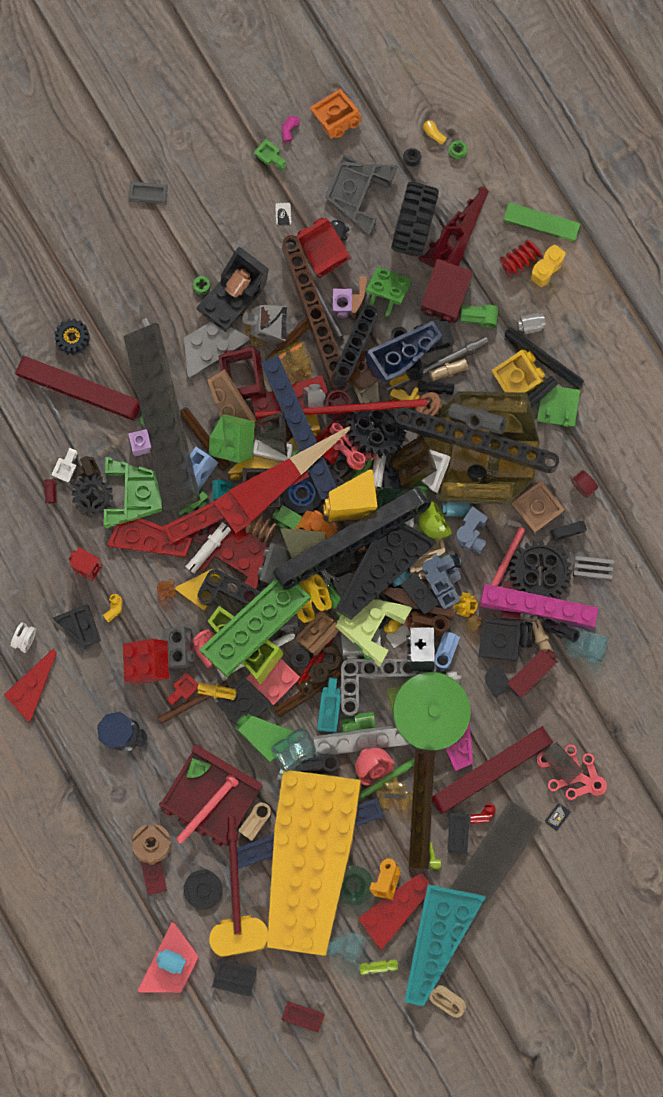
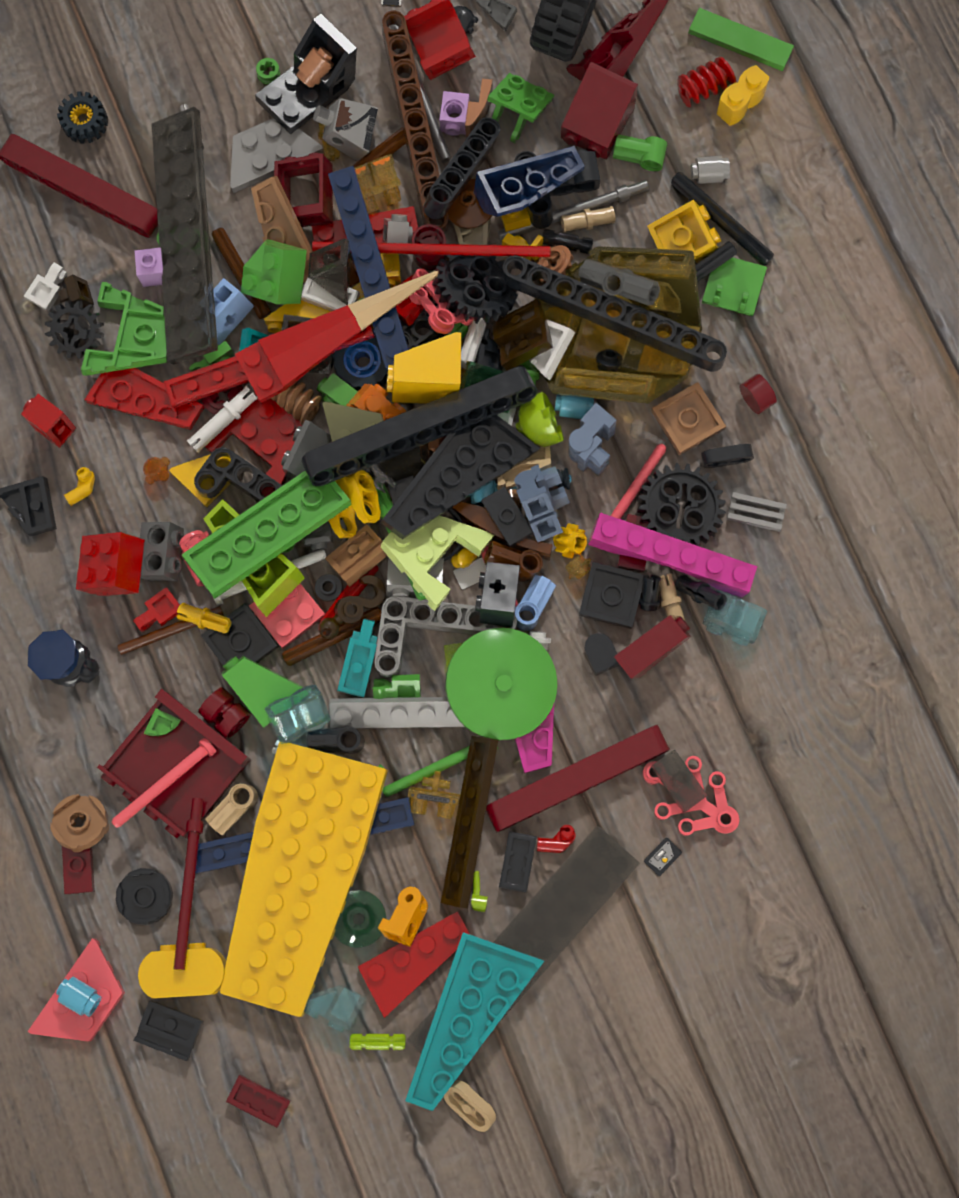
camera: 10 degrees right, 0 degrees up
(50, 491) = (20, 312): dark red pin -> none
(240, 755) = (224, 712): none -> dark red wheel
(373, 765) = (408, 750): coral cylinder -> none

